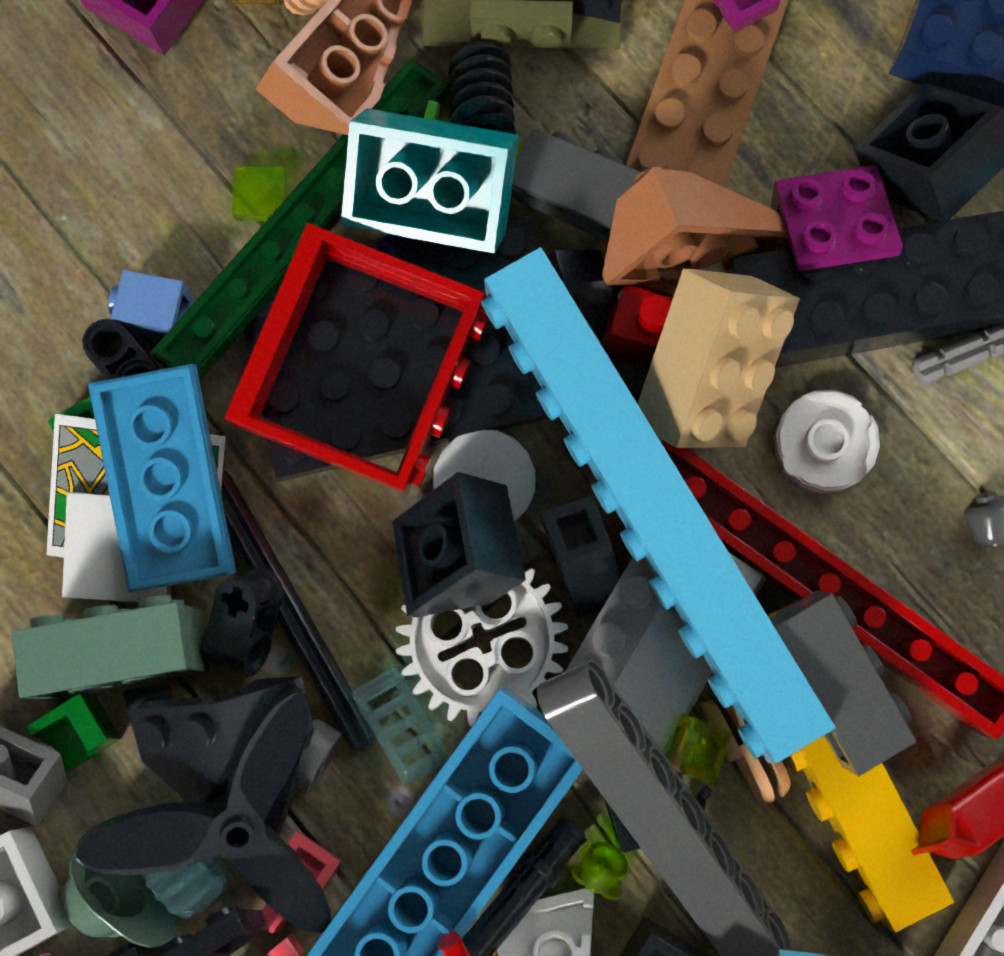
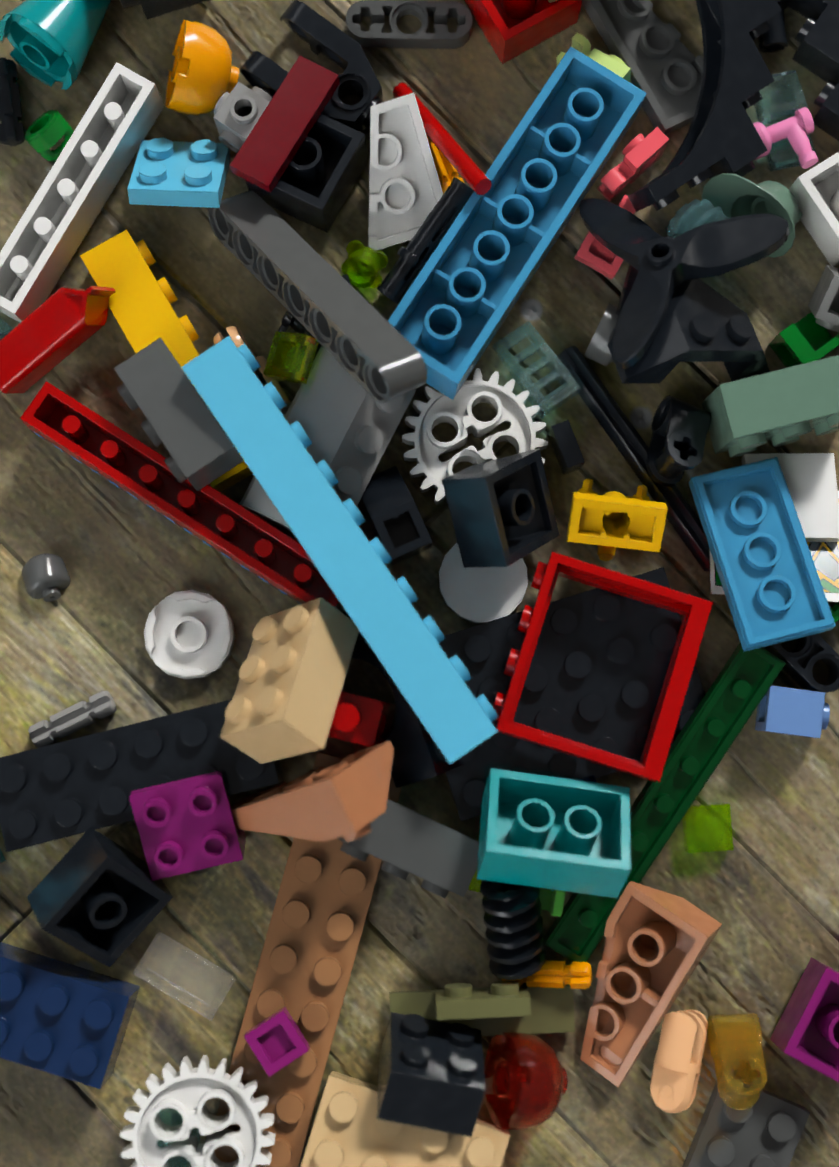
camera: 170 degrees right, 5 degrees up
(324, 528) = (616, 520): none -> yellow piece
(374, 624) = (565, 447): none -> black tile
(436, 50) = (558, 974): none -> light orange axle
(840, 78) = (184, 975): none -> clear tile

